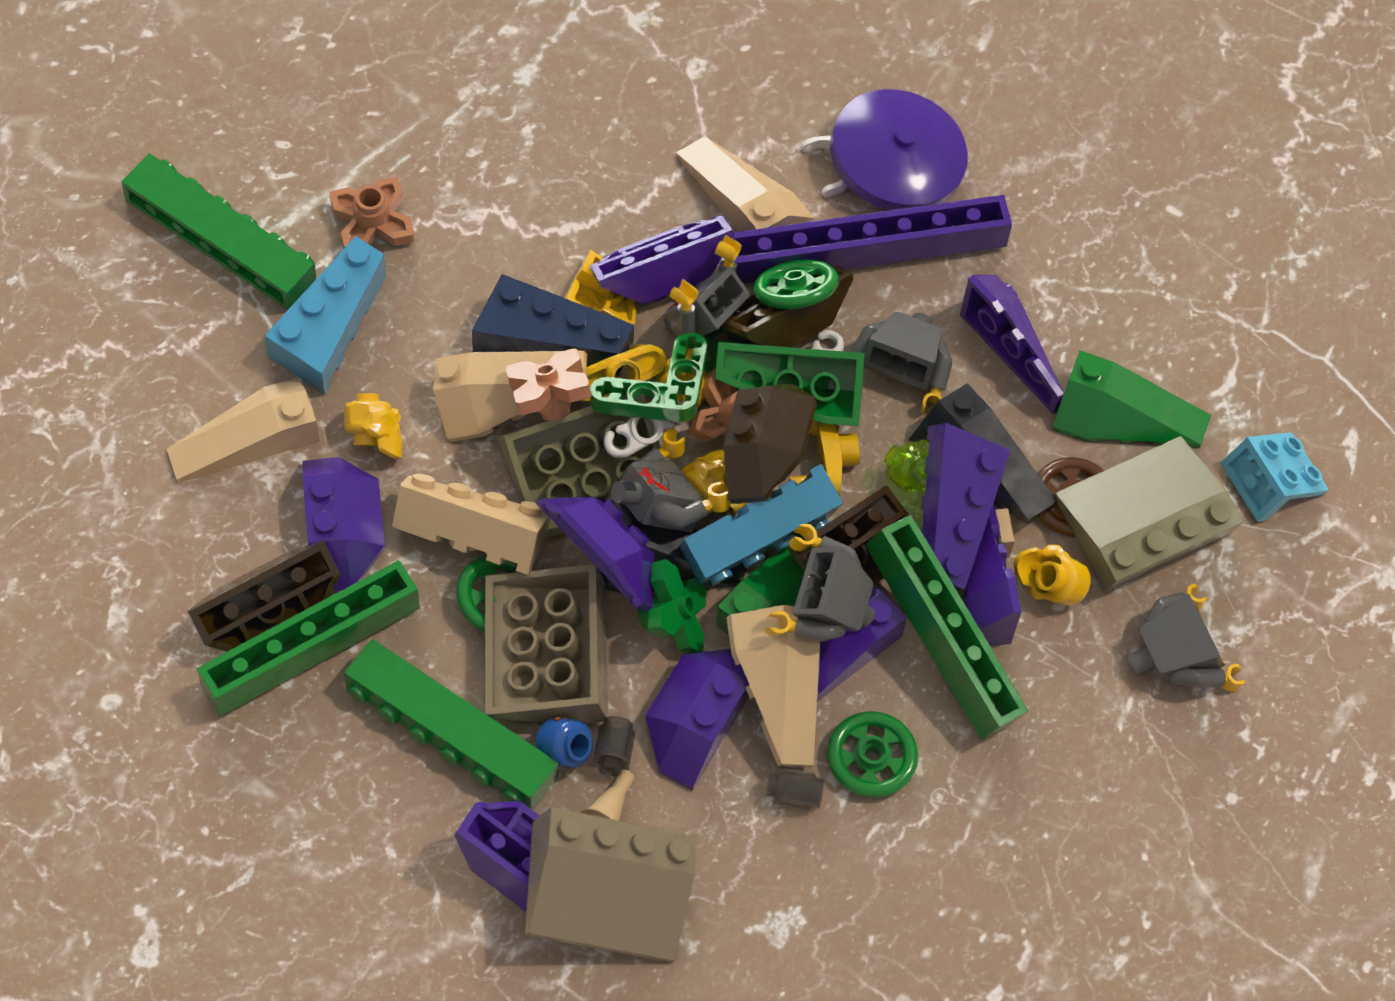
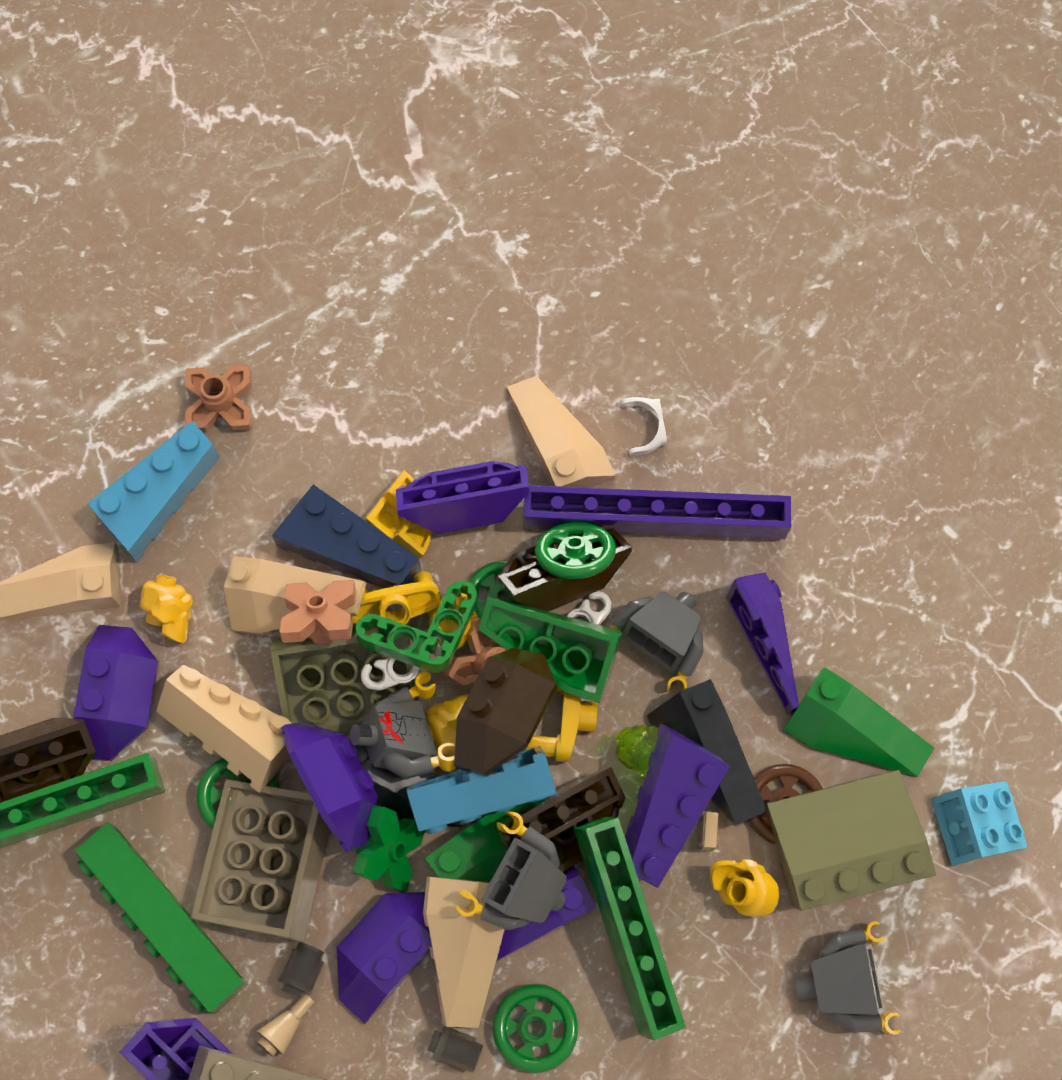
camera: 15 degrees right, 10 degrees up
(219, 230) = (80, 388): green brick -> none
(565, 741) = (255, 960): blue head -> none
(710, 302) = (494, 548): dark grey torso -> none
(898, 150) = (707, 426): dark purple dish -> none
(992, 588) = (678, 898): dark purple wedge -> none

